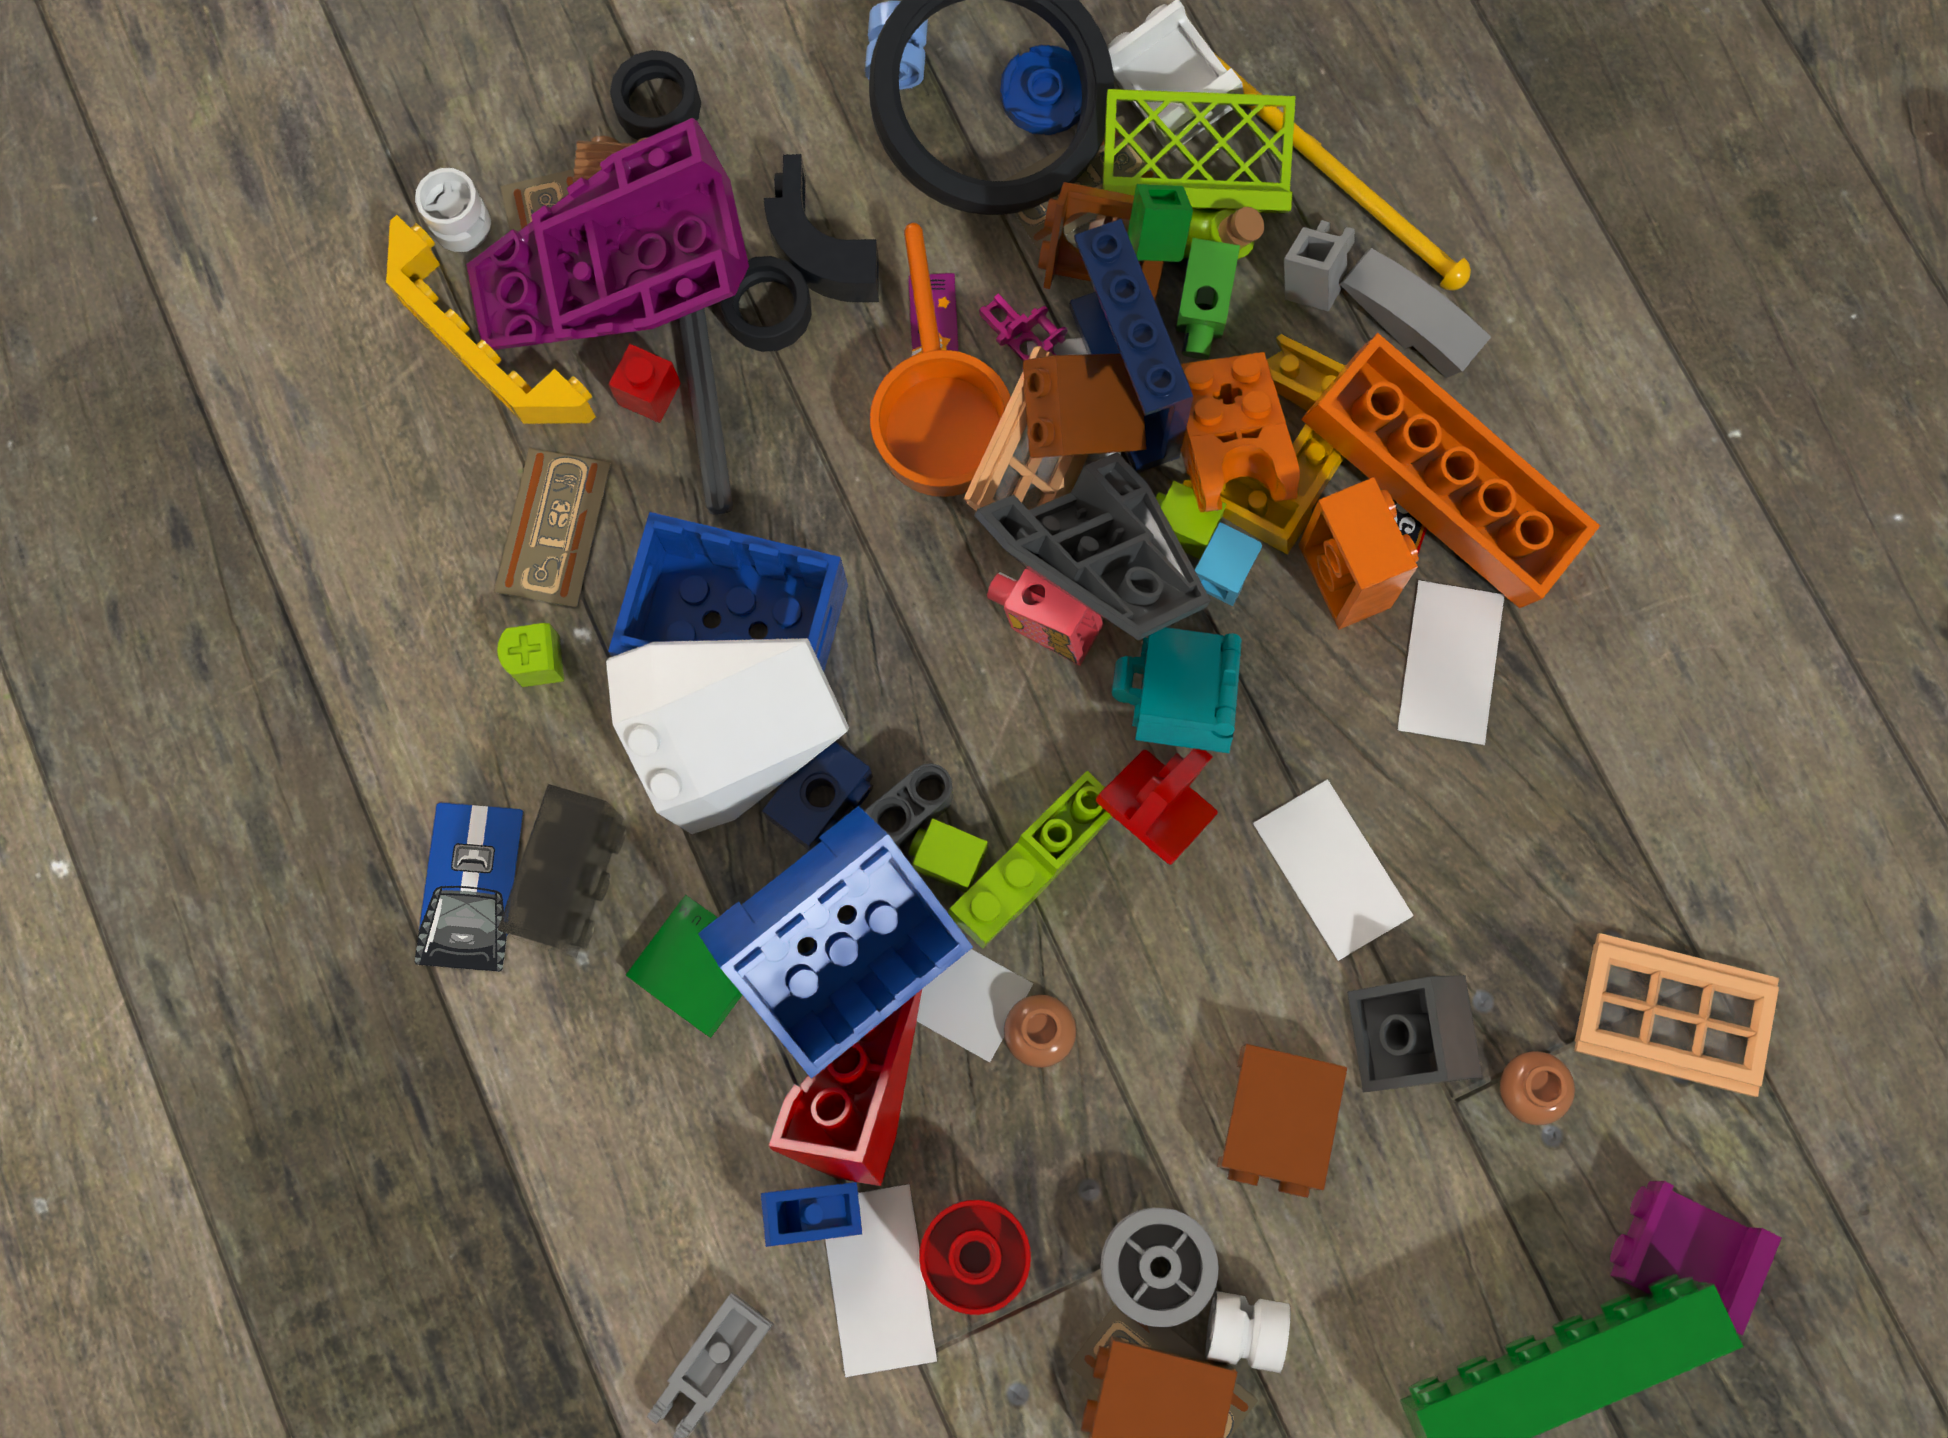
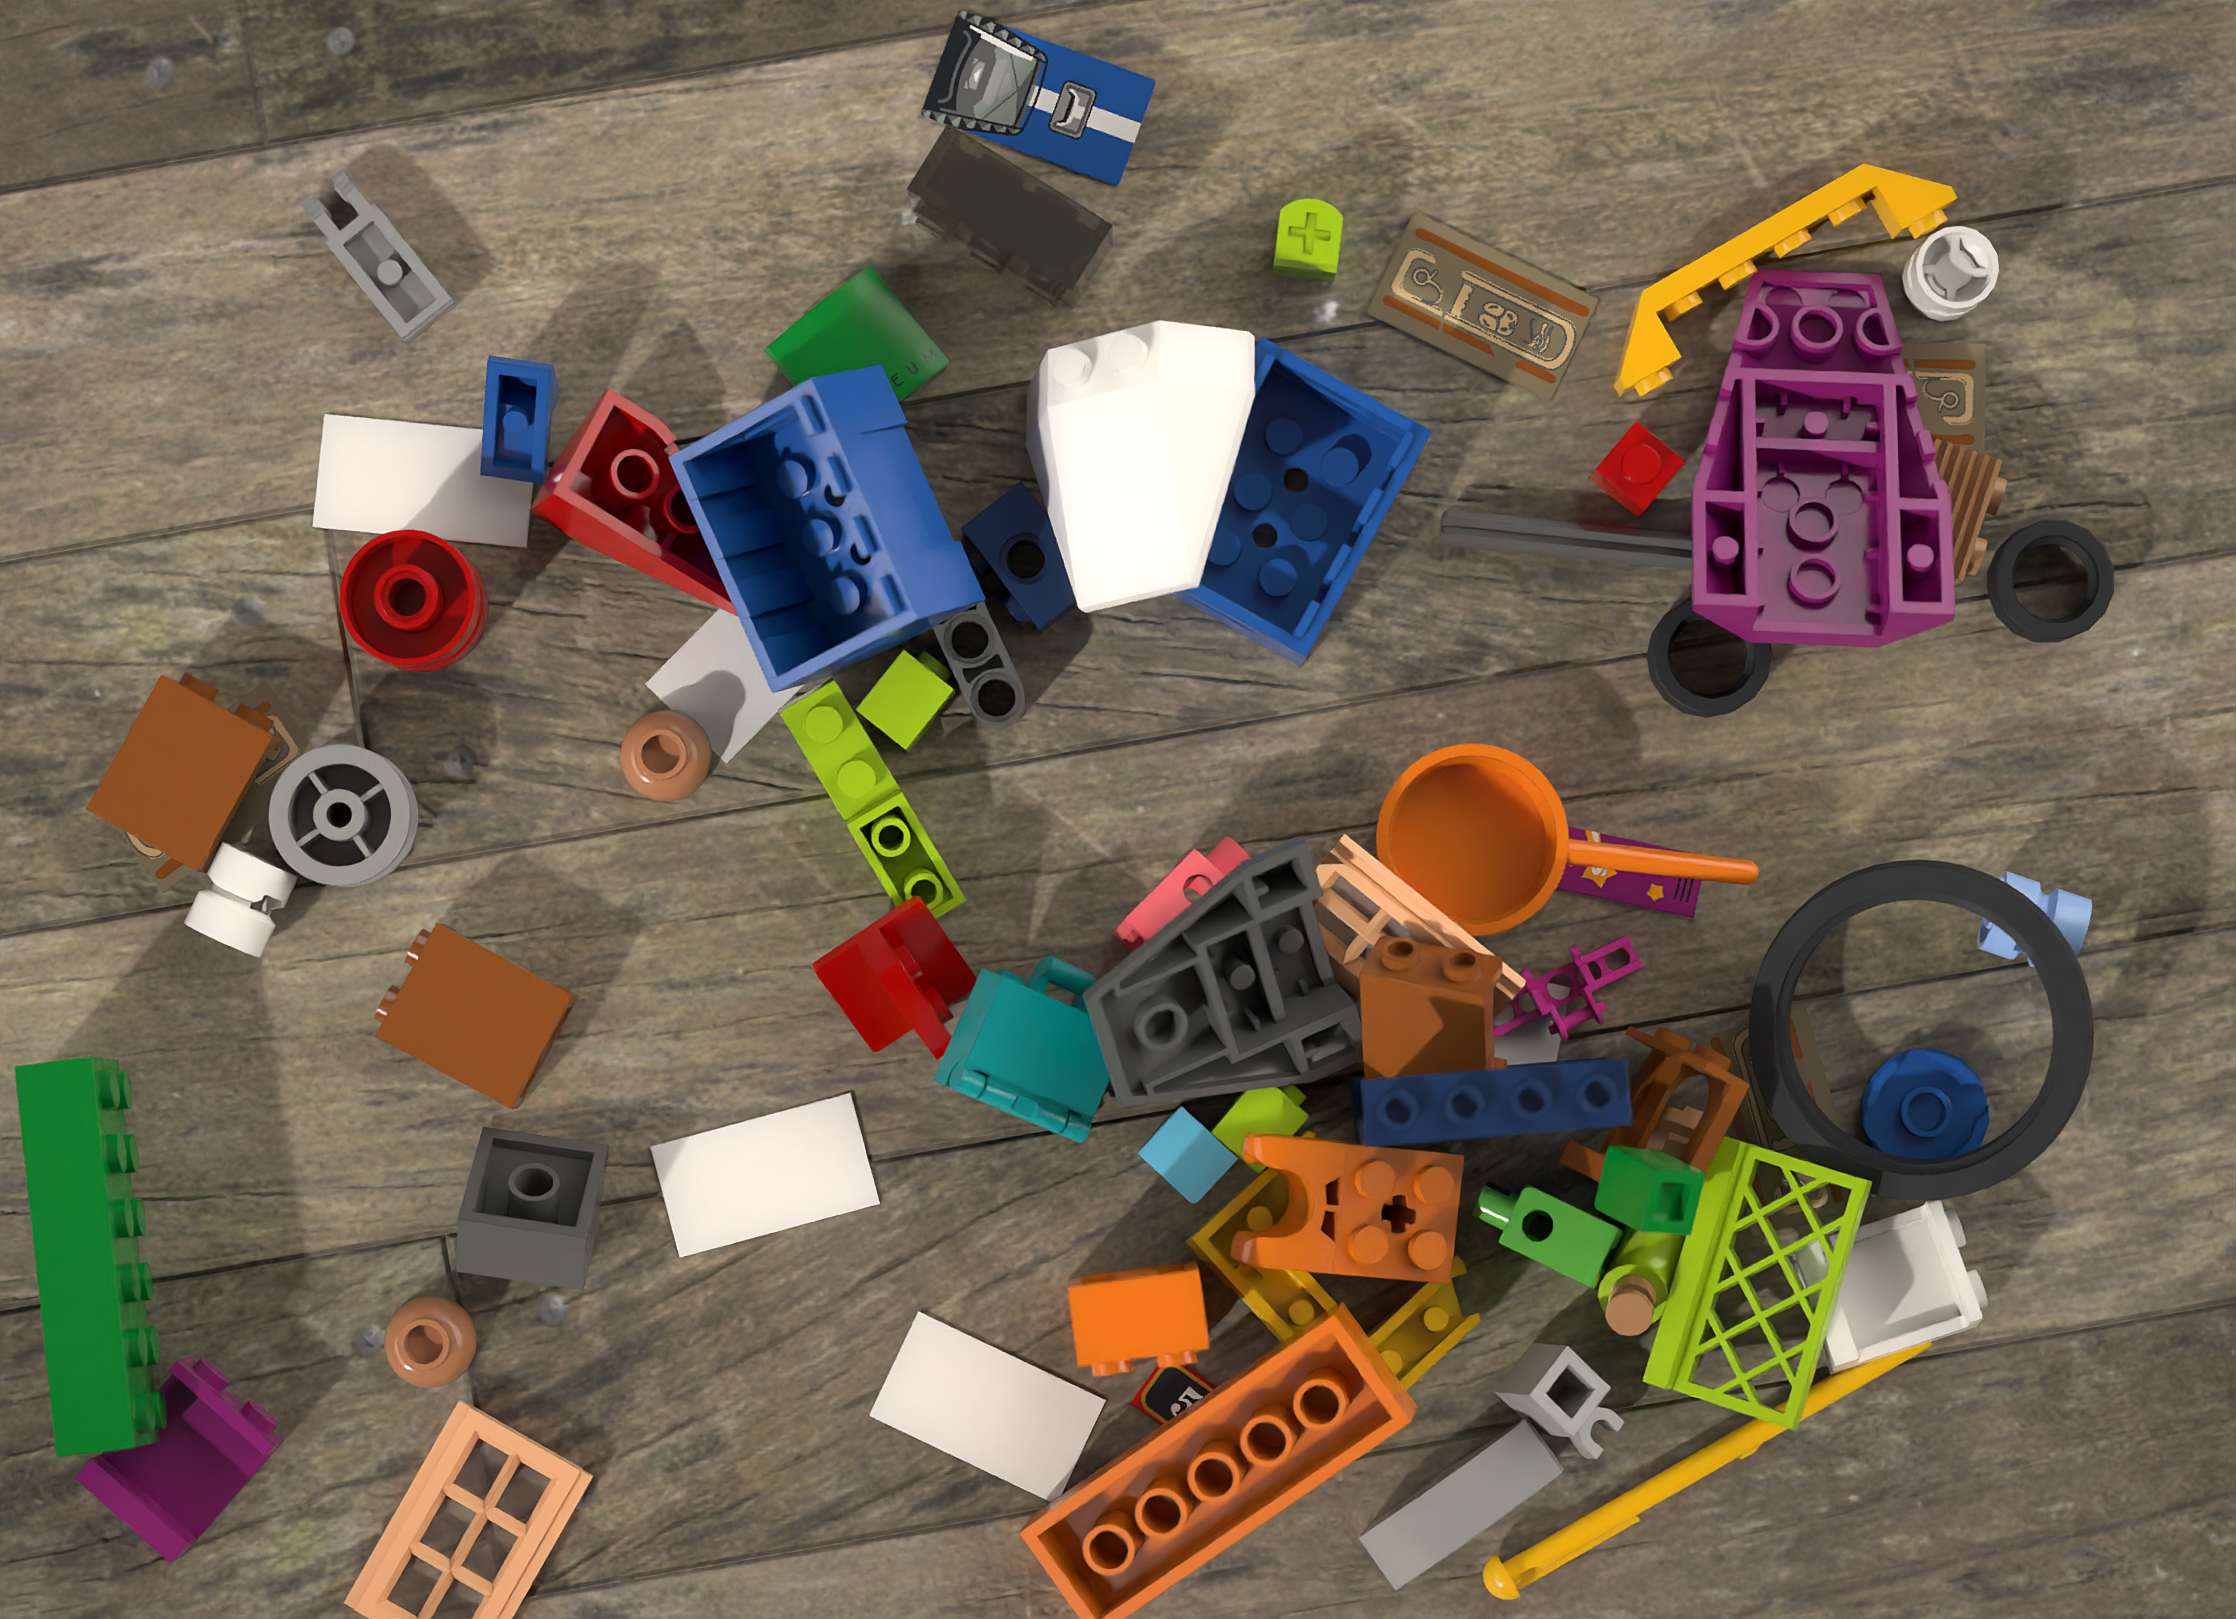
camera: 100 degrees right, 10 degrees up
(829, 265) = (1737, 752): black arch -> none

